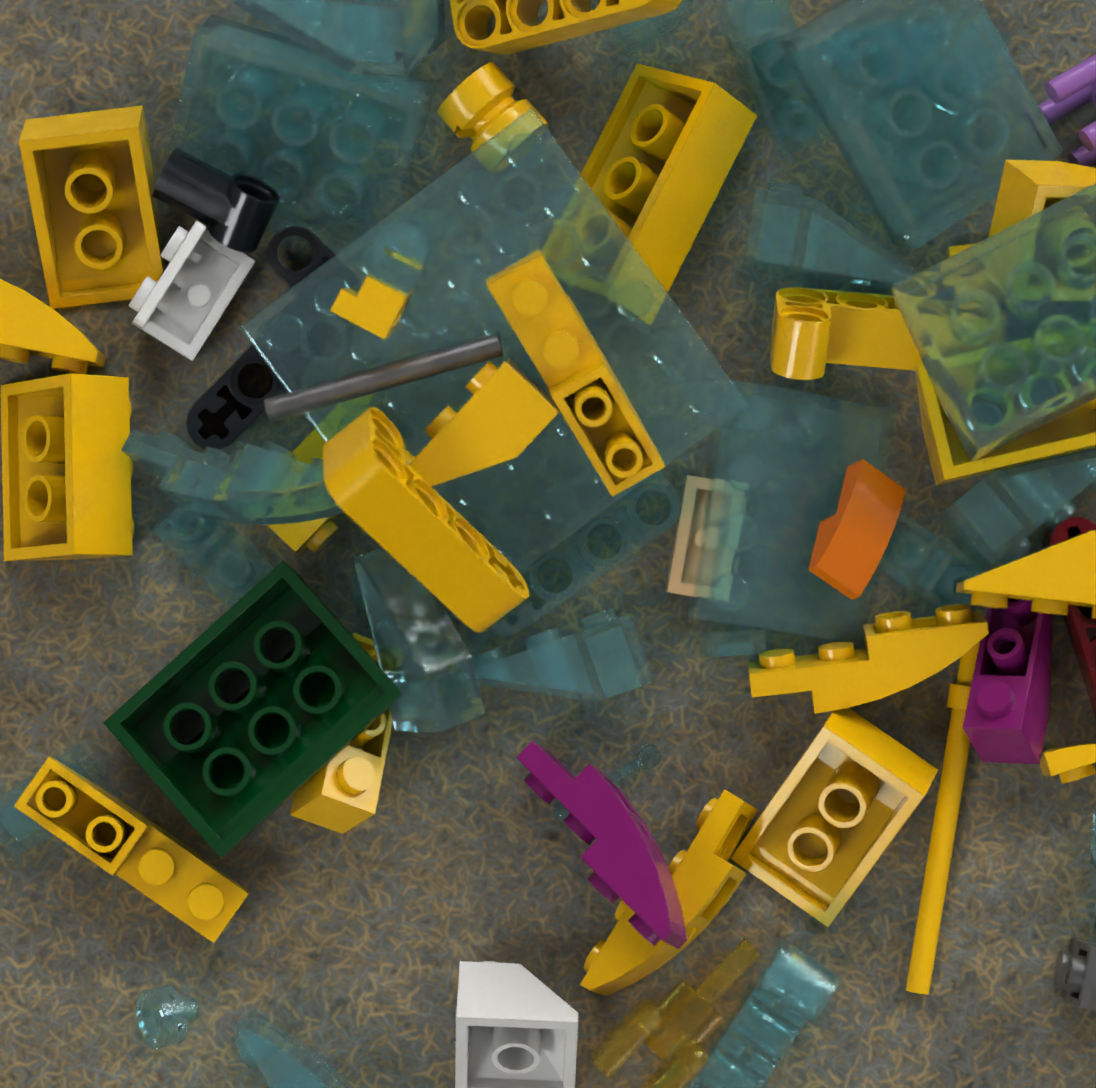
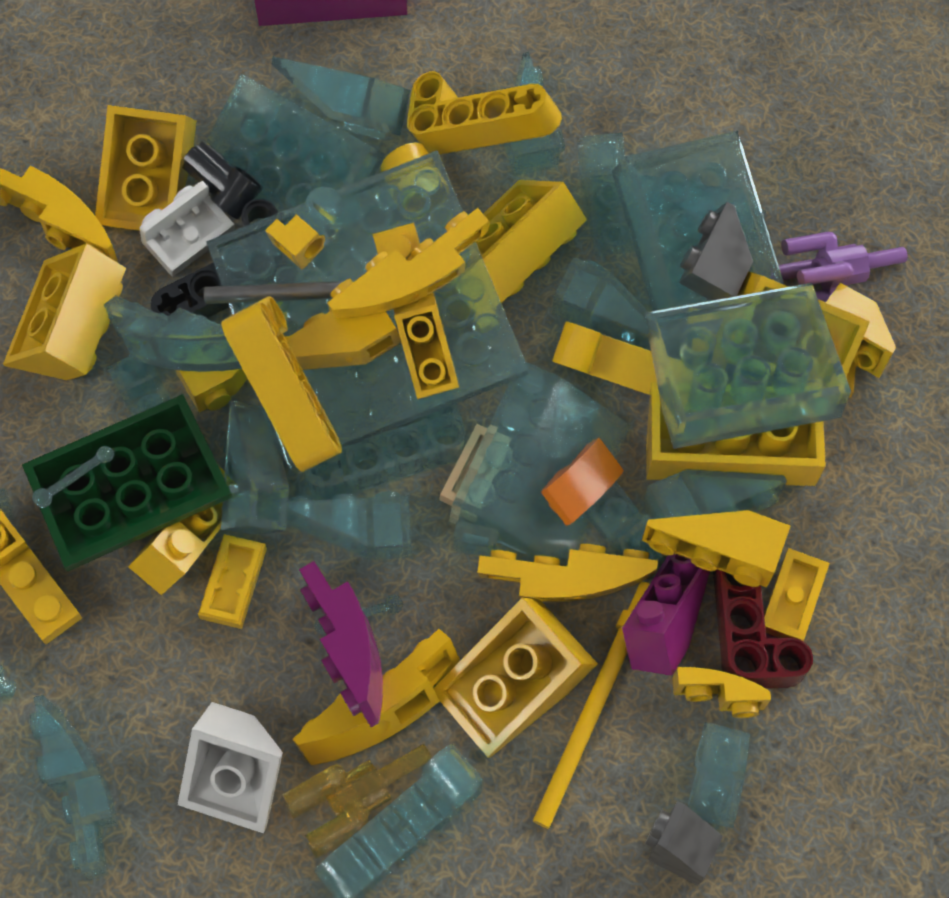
camera: 10 degrees right, 20 degrees down
(153, 766) = (43, 497): none -> clear light blue hinge
(429, 789) = (232, 581): none -> yellow plate
(546, 358) = (396, 282): none -> yellow slope
(968, 154) = (721, 257): none -> flat silver slope

